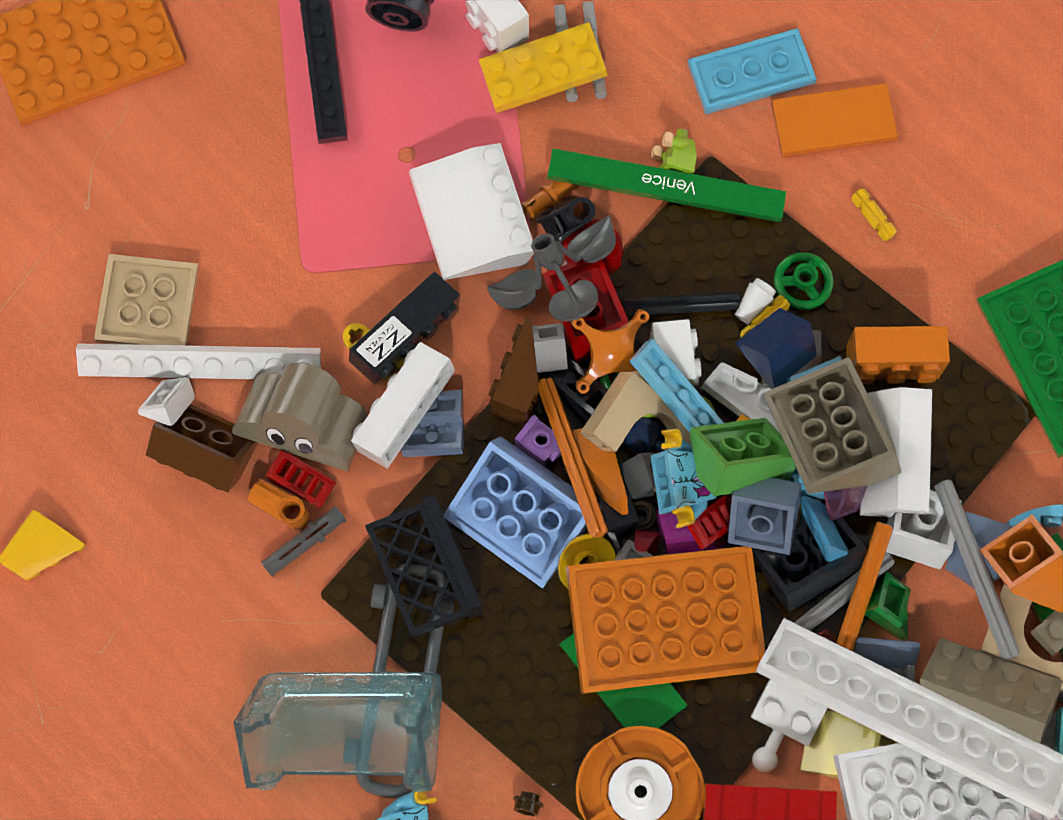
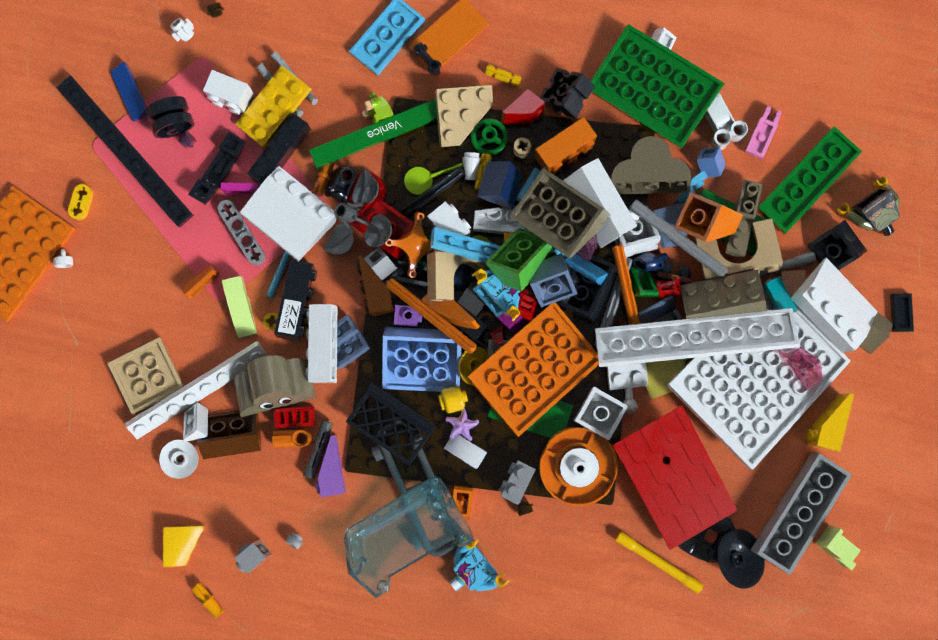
camera: 30 degrees left, 10 degrees up
(22, 646) = (207, 600): none -> light orange axle
(104, 425) = (169, 459): none -> white dish
(121, 622) = (251, 556): none -> light grey brick
(142, 91) = (63, 261): none -> white tile
(190, 642) = (294, 540): none -> light grey plate
(213, 32) = (84, 203): none -> yellow beam
(298, 228) = (200, 281): none -> orange slope
(299, 583) = (331, 474): none -> medium lavender slope
(327, 290) = (239, 306): none -> yellowish green slope
(397, 200) = (240, 233): none -> light grey beam
(403, 40) = (187, 139): none -> clear purple plate
(405, 283) = (278, 275): none -> medium azure bar
(419, 103) = (218, 169): none -> black slope
(428, 140) = (239, 188): none -> dark pink tile
(453, 734) = (463, 498): none -> orange slope
(499, 670) = (465, 451): none -> white slope
(516, 633) = (461, 425): none -> lavender animal
(517, 123) = (280, 148): none -> black brick
(527, 589) = (452, 399): none -> yellow head
(542, 757) = (517, 483): none -> light grey brick
(674, 277) = (419, 179): none -> lime piece
(717, 737) = (600, 413): none -> white brick
(786, 223) = (460, 111): none -> tan plate
(789, 143) = (434, 65): none -> black bar
(847, 317) = (525, 143): none -> tan bush
(872, 273) = (524, 109): none -> red slope
(911, 626) = (668, 287): none -> red bush
(918, 580) = (650, 262): none -> dark blue piece
(927, 613) = (665, 274): none -> black hips
(945, 286) = (566, 92): none -> black brick
(995, 455) = (651, 170): none -> dark tan brick

